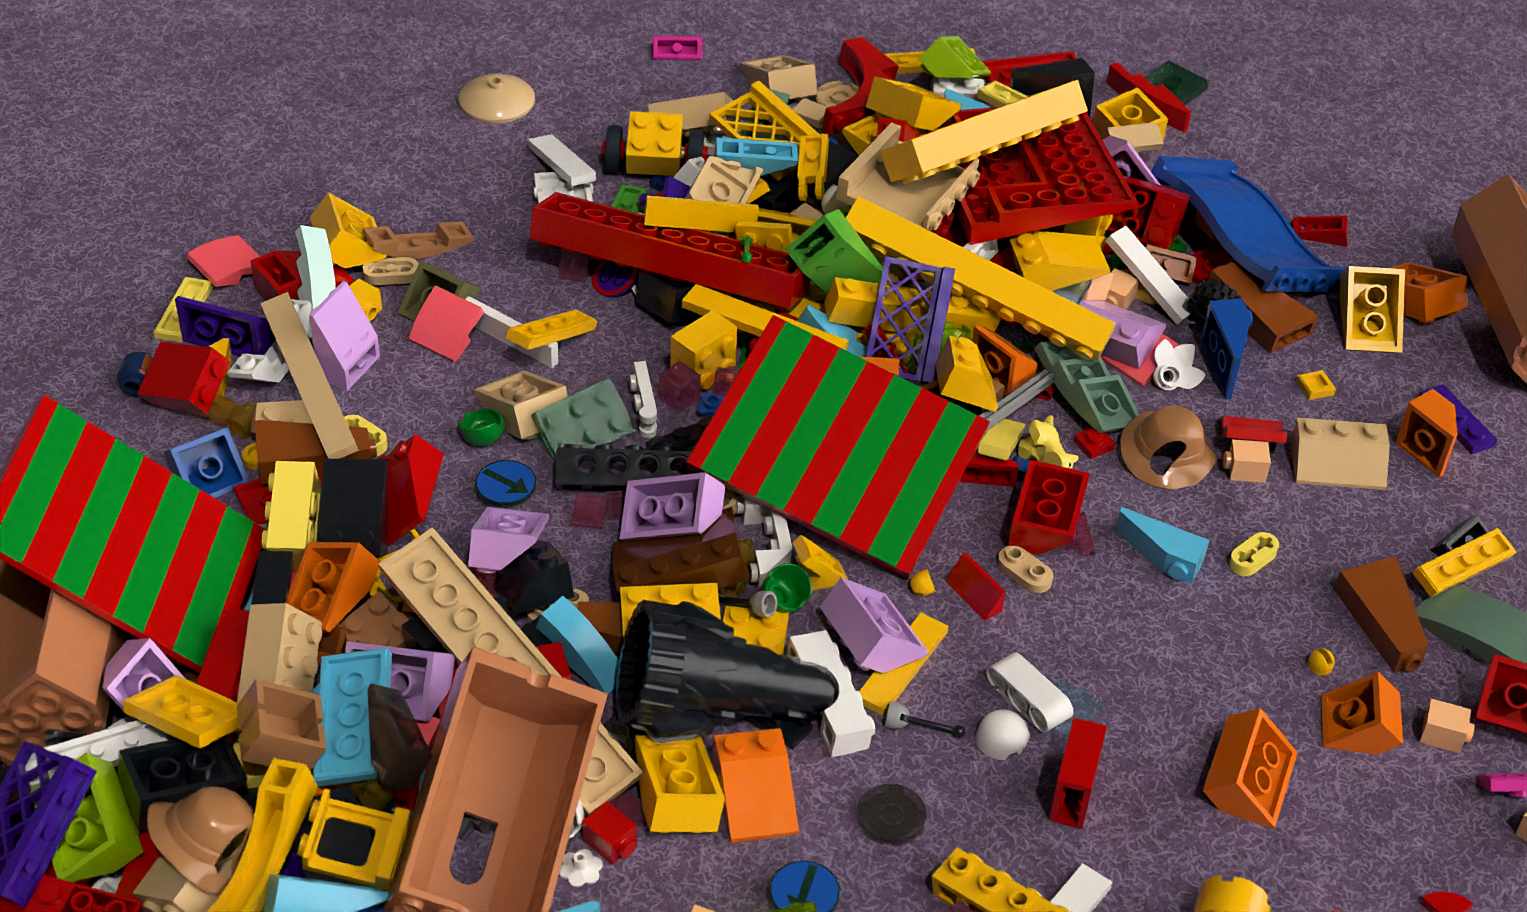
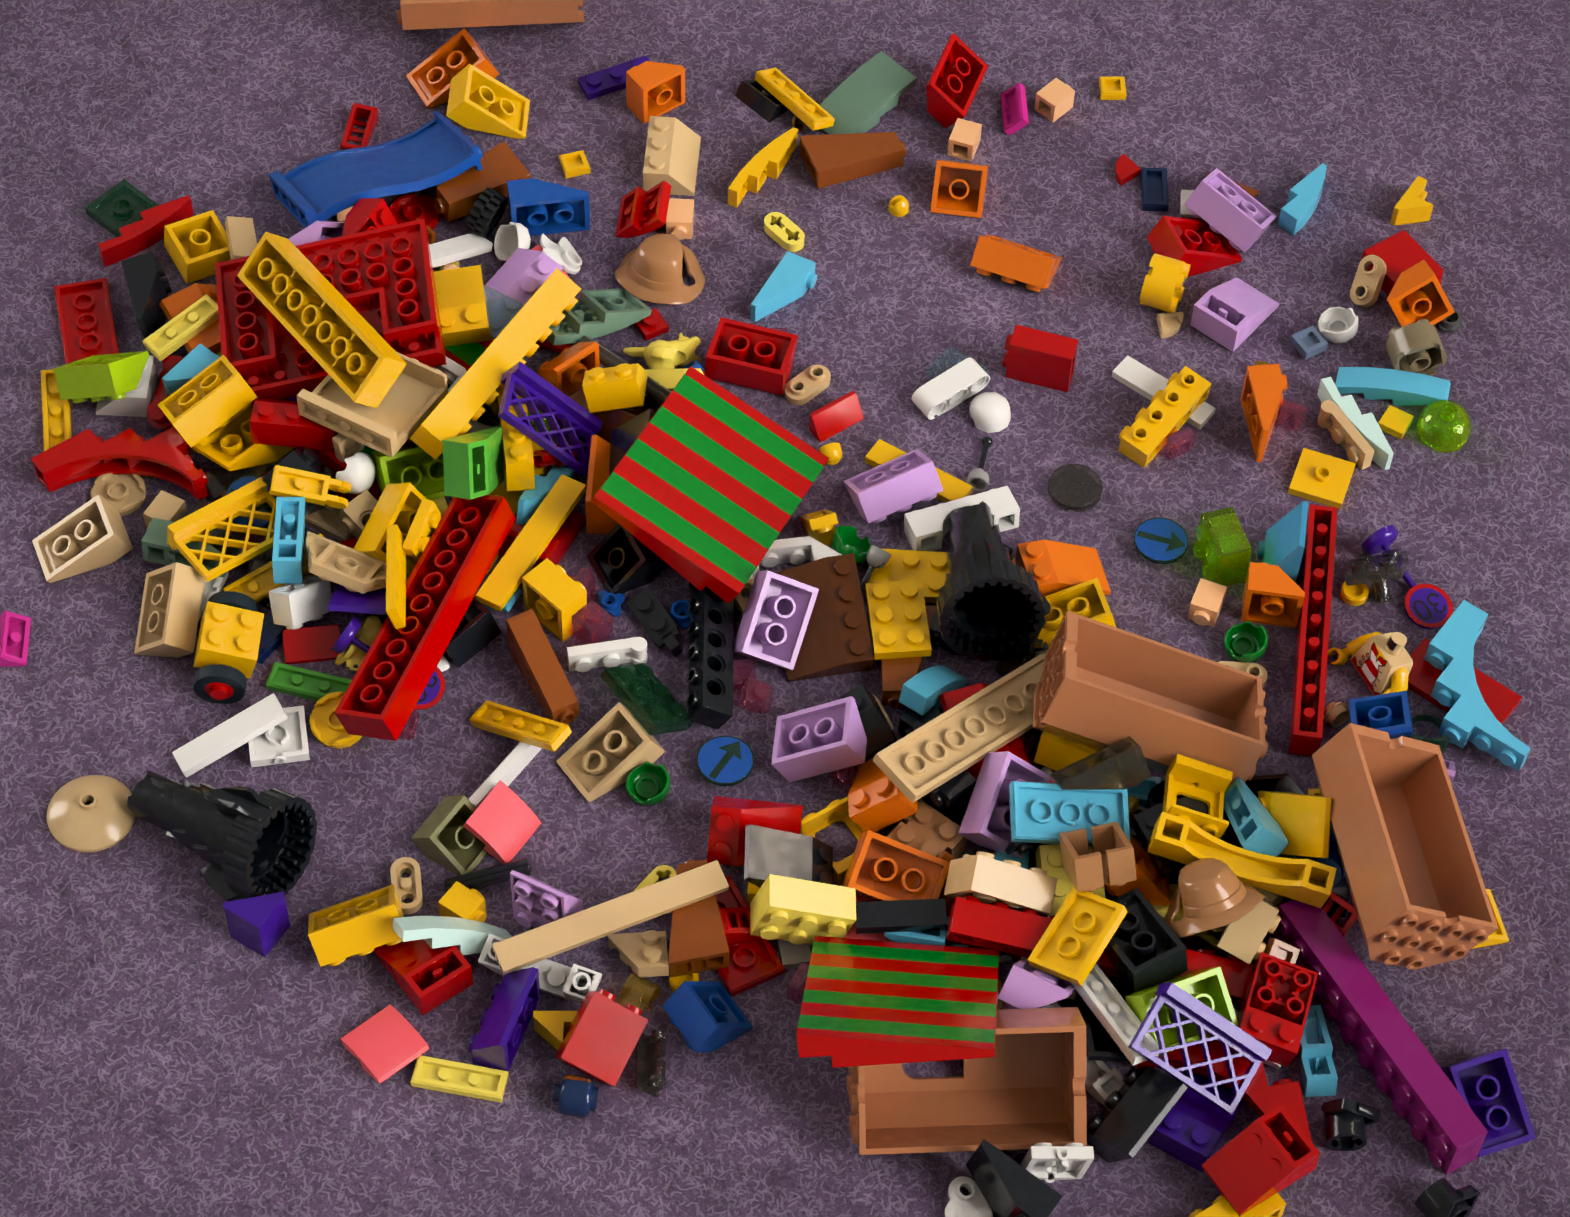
camera: 90 degrees left, 10 degrees up
(163, 426) = (648, 1065): none -> clear smoke hinge
(352, 174) = (258, 921): none -> dark purple slope
(395, 324) = (490, 876): none -> black axle
(419, 245) = (358, 859): medium nougat slope -> none
(428, 152) = (248, 838): none -> black cone
(614, 350) = (541, 667): none -> dark orange slope
(746, 257) = (431, 542): green hinge -> none
(1185, 330) = (509, 239): none -> white hair
(1336, 526) = (765, 163): none -> yellow slope

